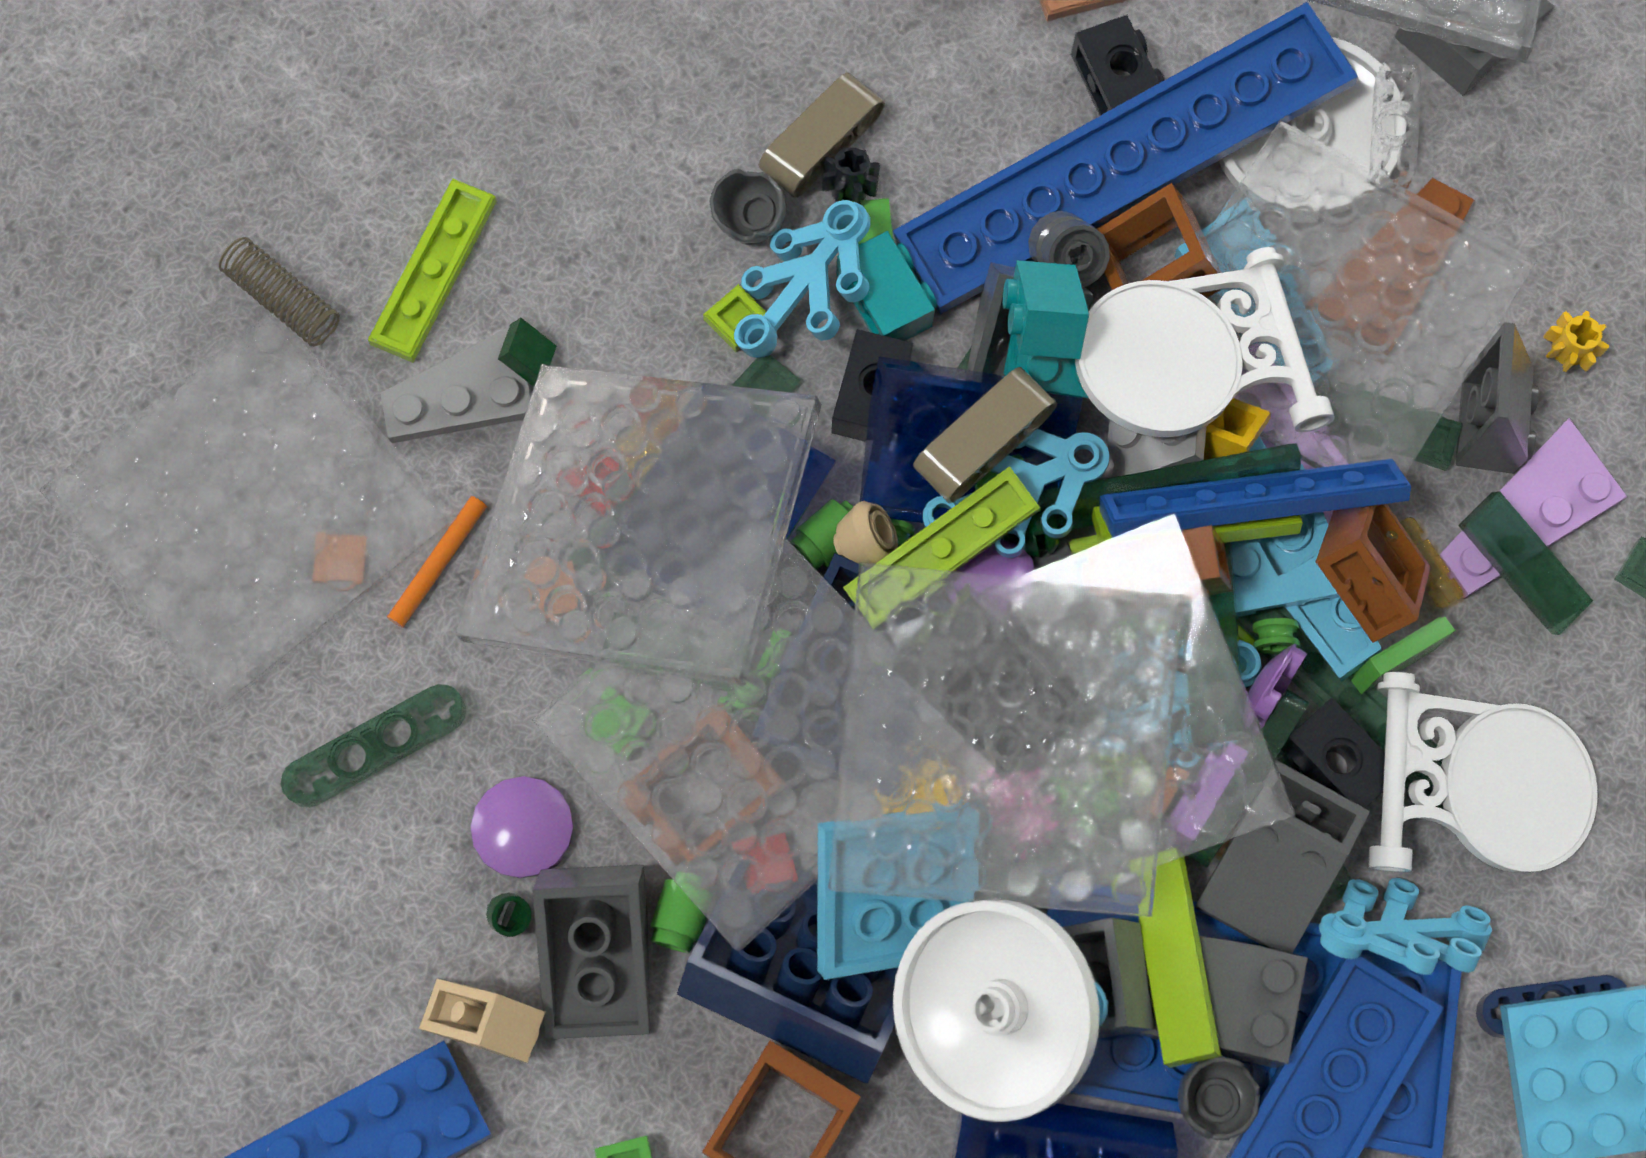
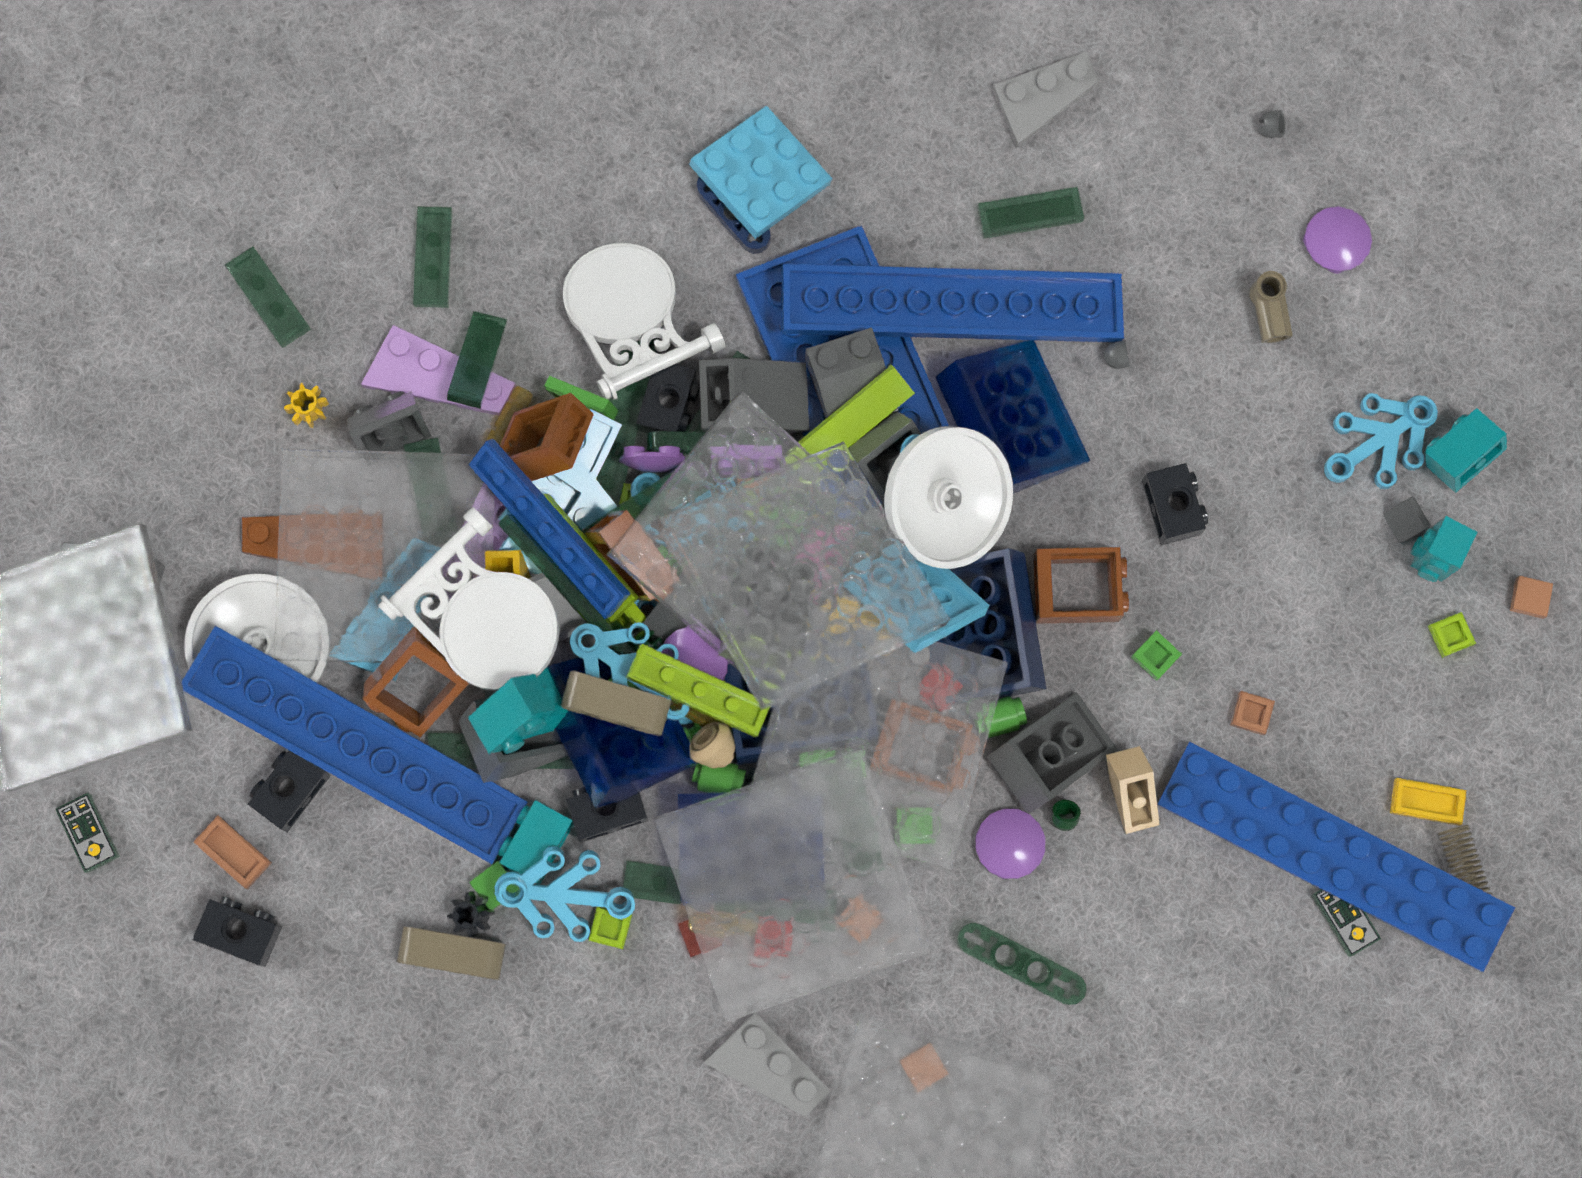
camera: 125 degrees left, 5 degrees up
(432, 270) = (700, 1145): lime tile -> none
(436, 561) = (886, 1006): orange bar -> none
(526, 350) = (720, 1040): dark green tile -> none
(748, 206) = (534, 965): dark grey hair -> none
(1069, 240) = (446, 737): dark grey wheel -> none
(1218, 1098) = (911, 356): dark grey hair -> none
(1275, 634) = (617, 475): bright green bush -> none
(1348, 933) = (776, 334): medium azure plant -> none
(1407, 108) = (211, 606): clear beam -> none

